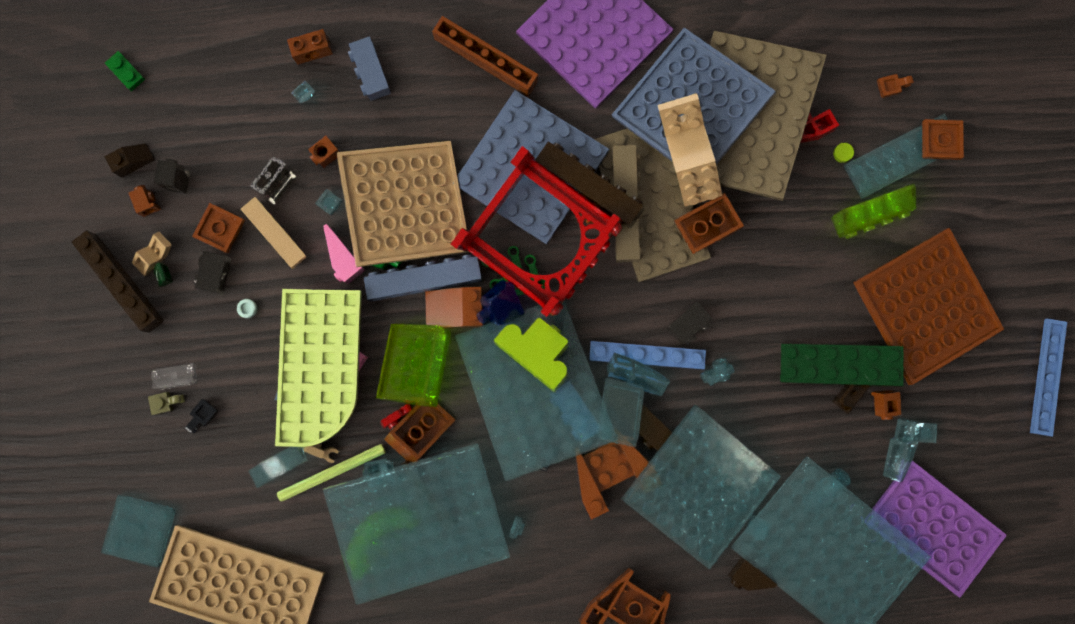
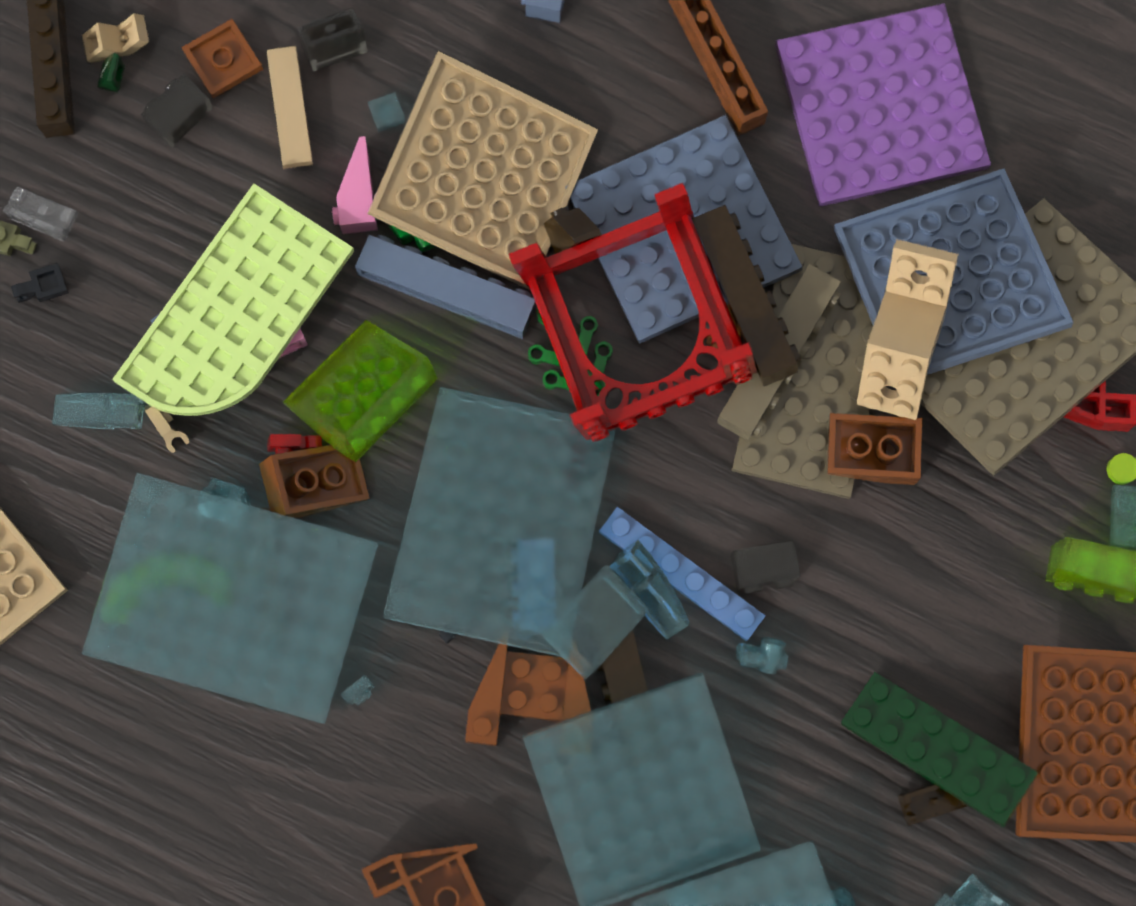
camera: 25 degrees right, 5 degrees down
(247, 308) = (191, 184): light aqua tile -> none
(323, 144) = (427, 32): dark orange brick -> none
(331, 472) = (161, 464): yellowish green axle -> none
(454, 307) = (465, 350): dark orange slope -> none
(471, 206) = (569, 228): none -> dark brown slope
(500, 304) = (526, 381): clear blue torso -> none
(537, 351) = (535, 471): lime brick -> none
(887, 404) = (970, 845): dark orange brick -> none

